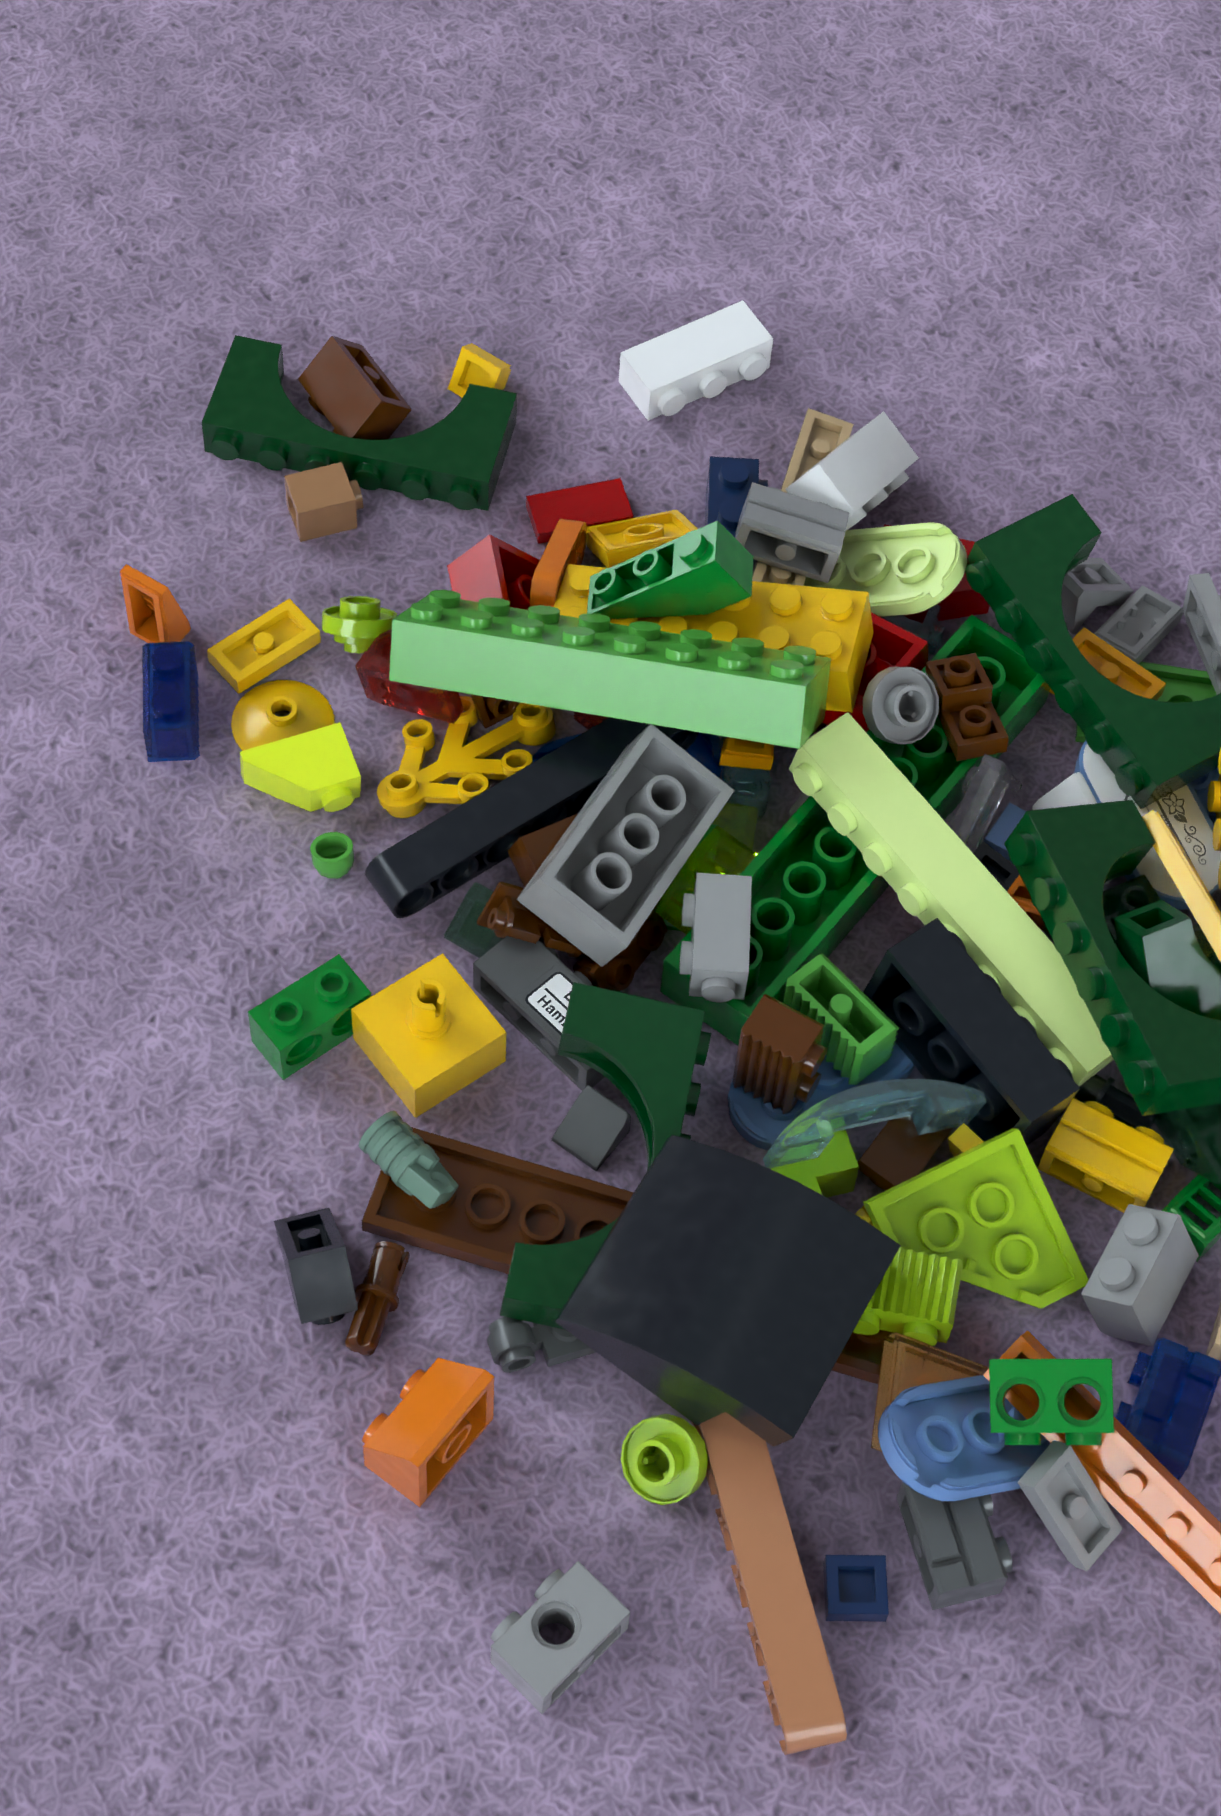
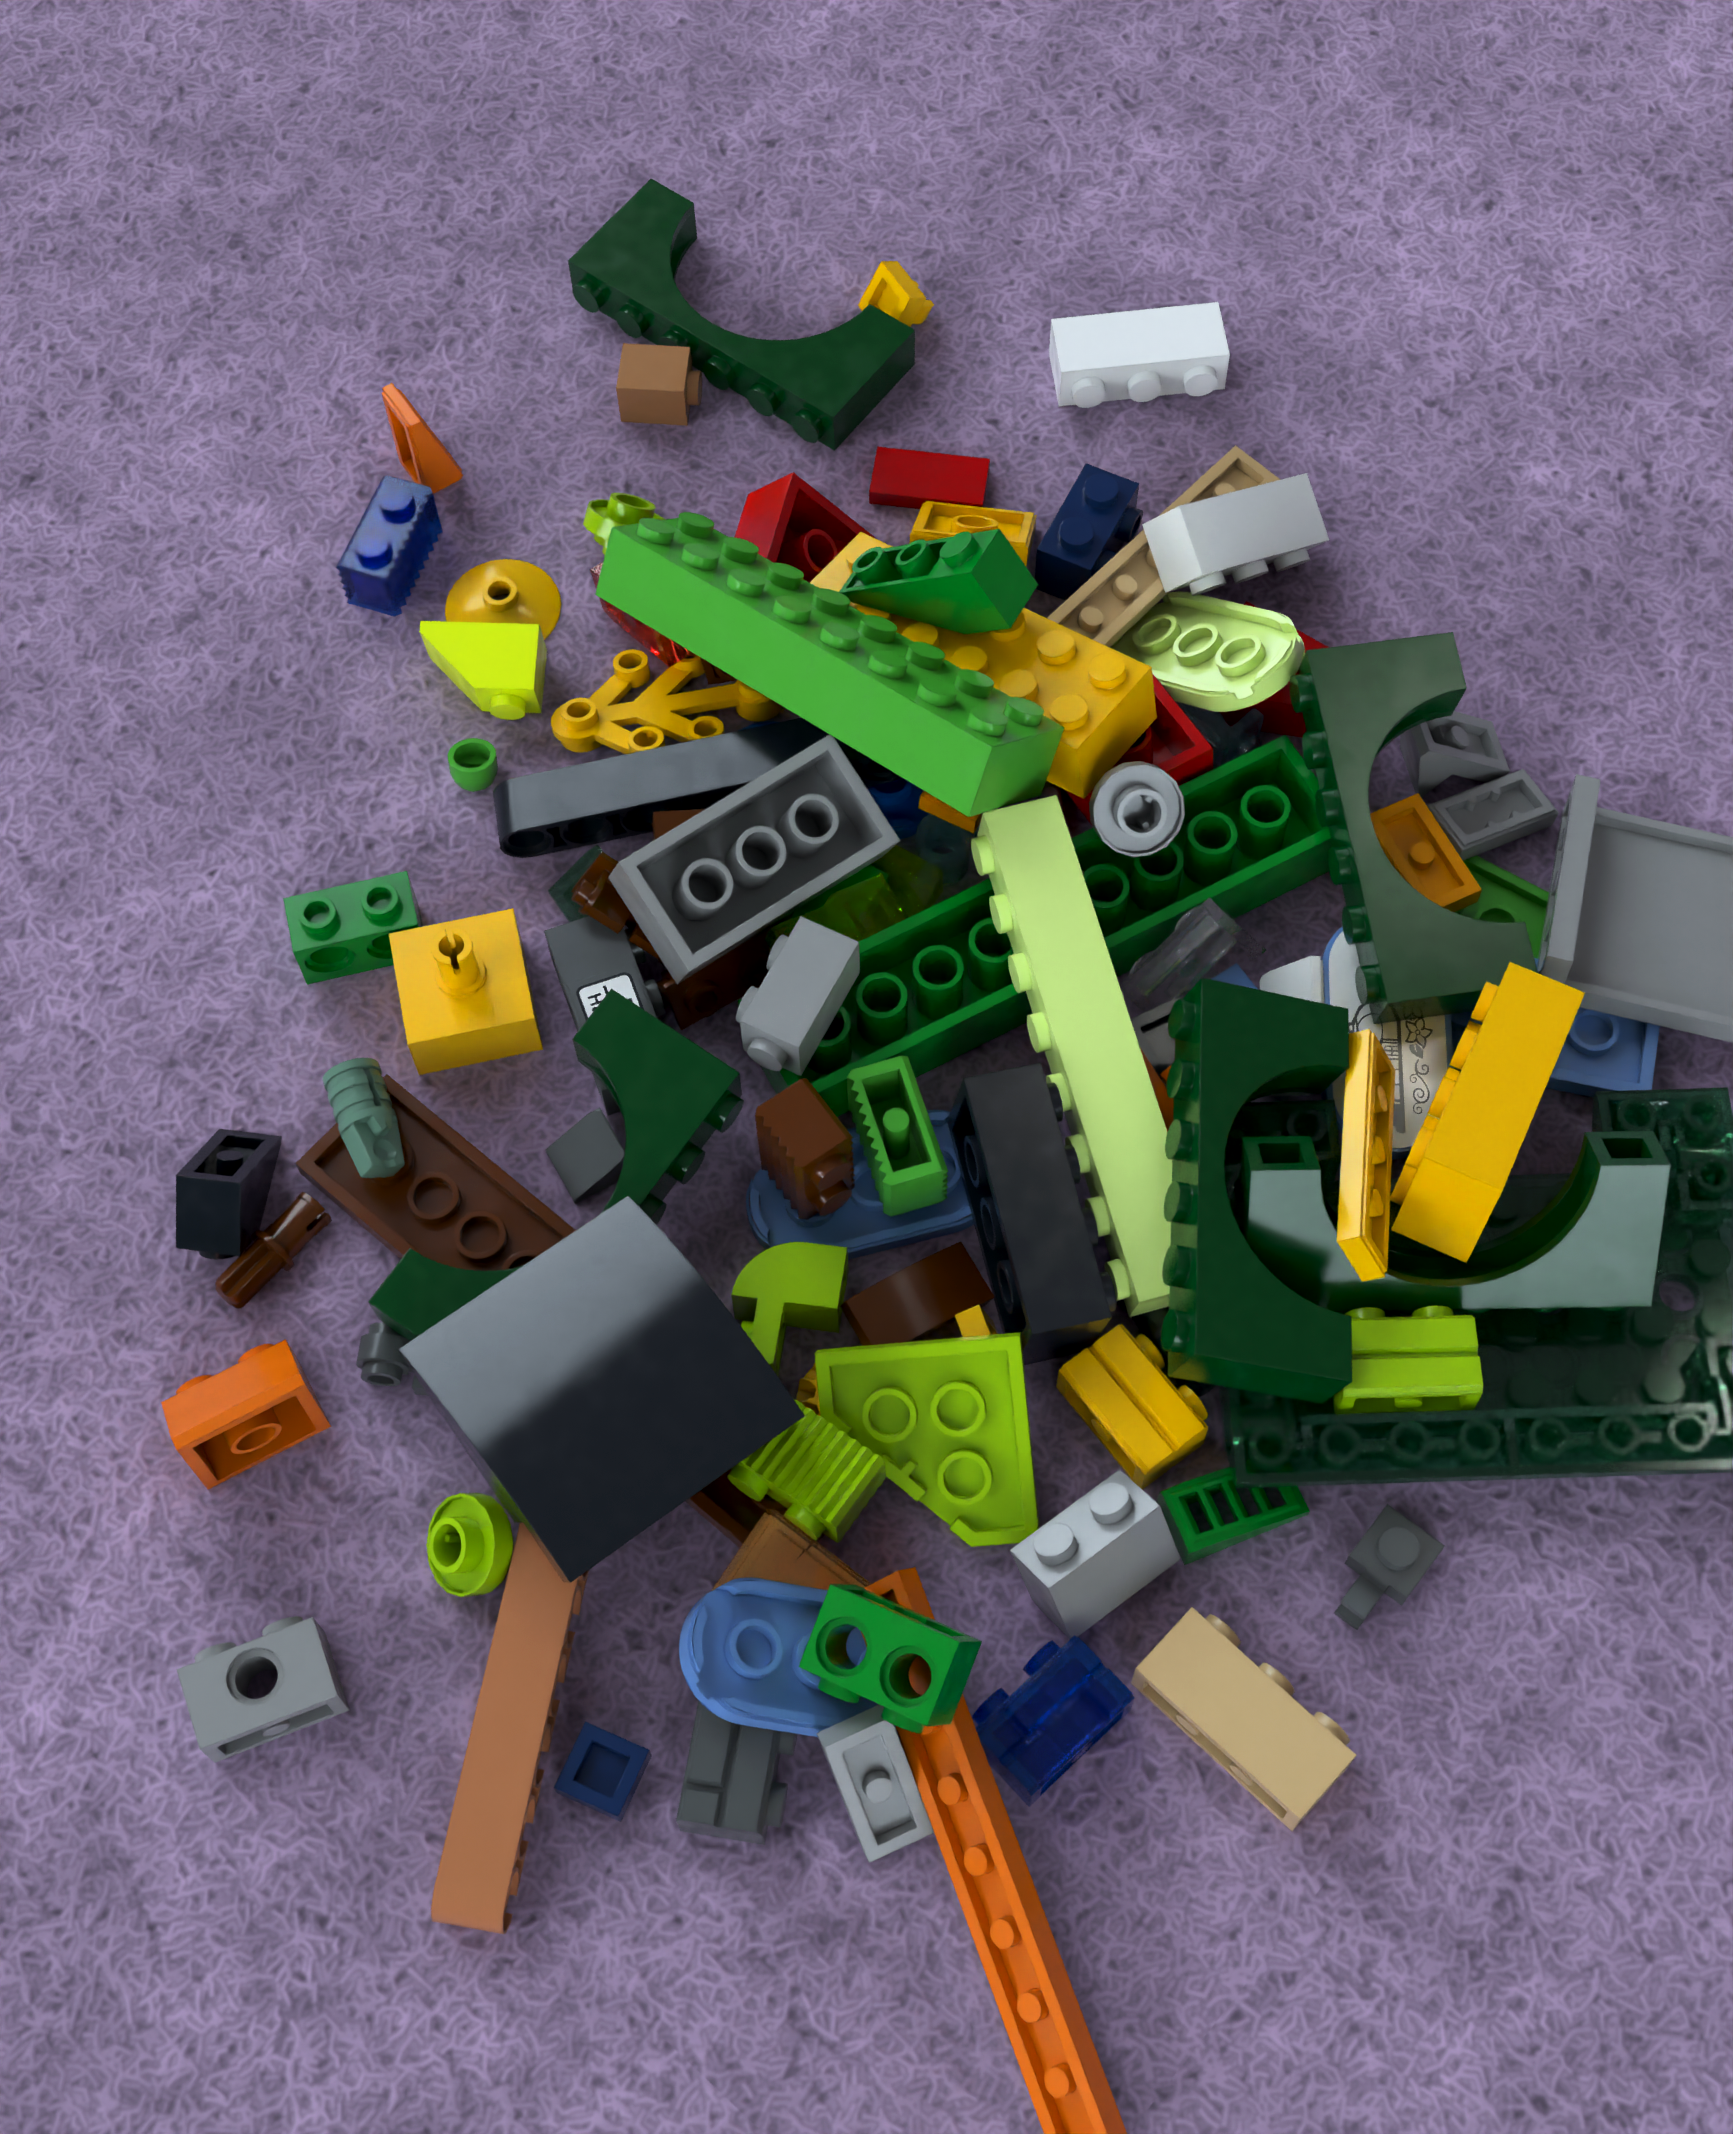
camera: 30 degrees right, 5 degrees up
(264, 646) = (520, 519): yellow plate -> none
(353, 392) = (746, 276): reddish brown brick -> none
(564, 548) = (883, 514): orange beam -> none
(792, 532) = (1117, 573): light grey brick -> none
(930, 1102) = (954, 1271): clear light blue slope -> none
(966, 707) = (1218, 836): reddish brown slope -> none

